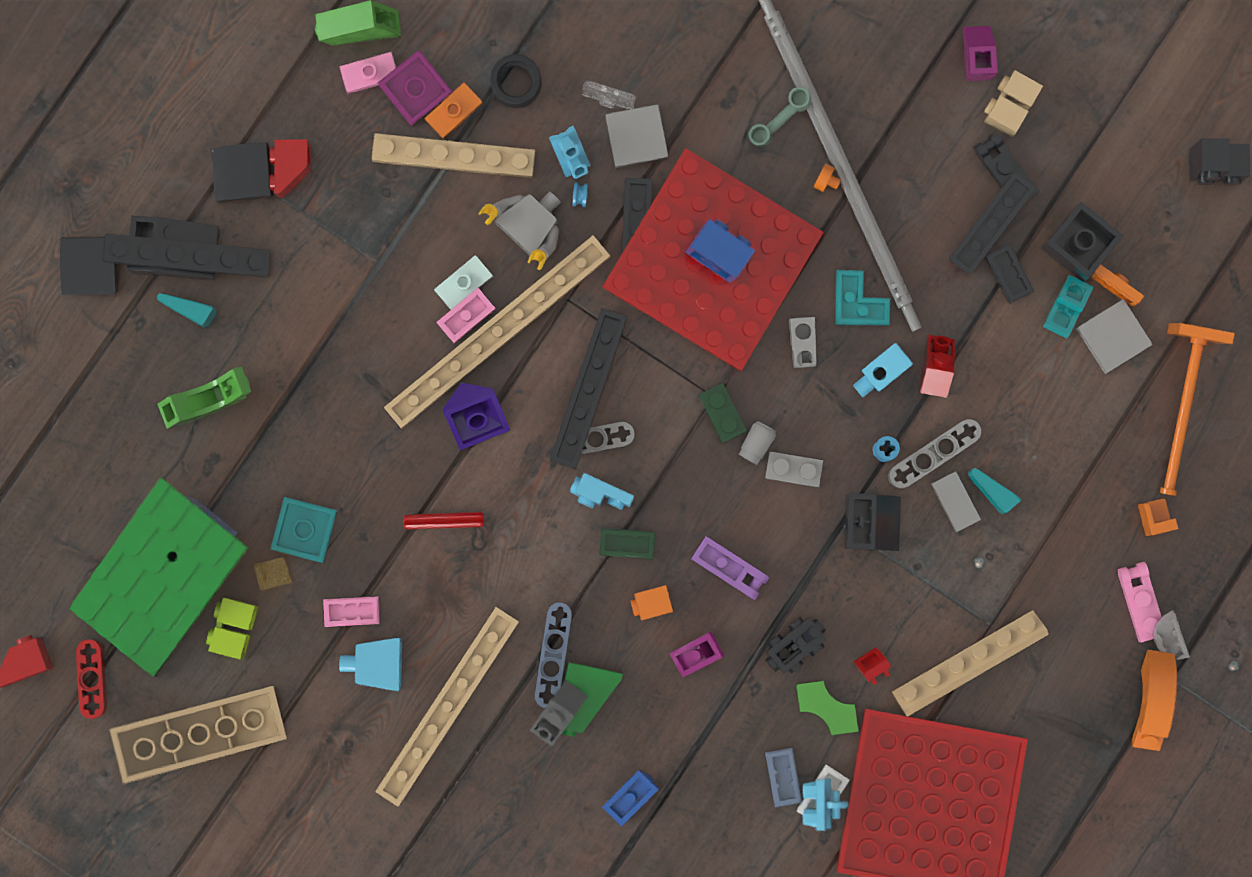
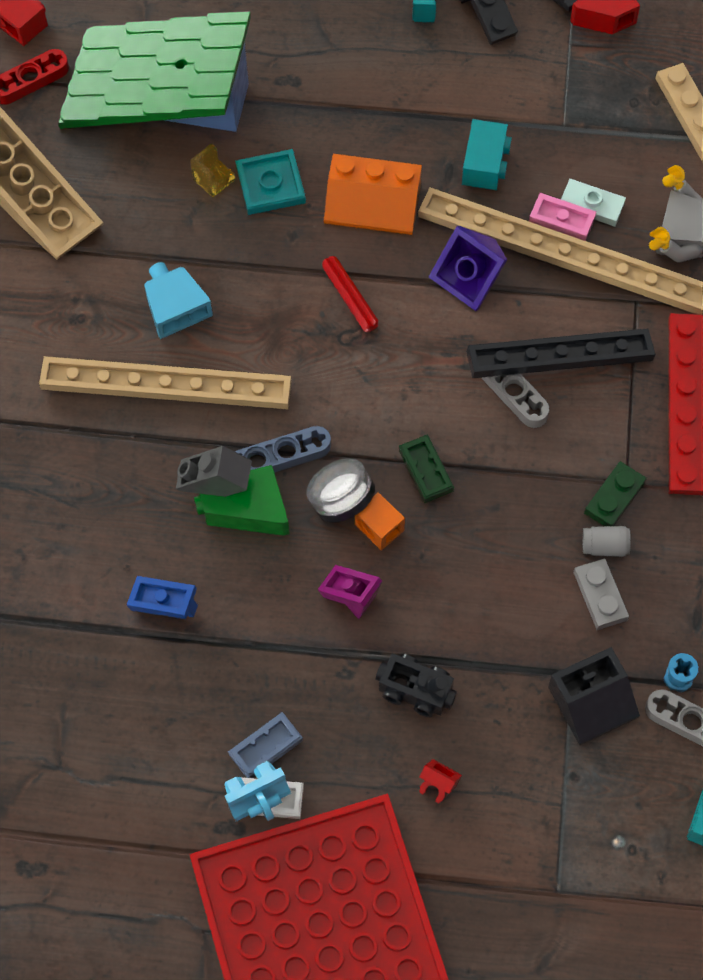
camera: 65 degrees right, 20 degrees down
(206, 399) = (343, 42): bright green arch -> none
(228, 641) = (156, 159): lime piece -> none
(351, 611) = (214, 255): bright pink plate -> none
(365, 456) = (372, 194): none -> orange slope
(379, 346) = (485, 154): none -> teal brick
(592, 492) = (461, 409): medium azure plate -> none
(616, 620) = (340, 490): none -> clear piece
(729, 567) = (459, 578): medium lavender plate -> none
(837, 715) = (363, 772): bright green tile -> none
(955, 501) = (669, 779): light grey tile -> none
(970, 663) = (503, 884): tan plate -> none

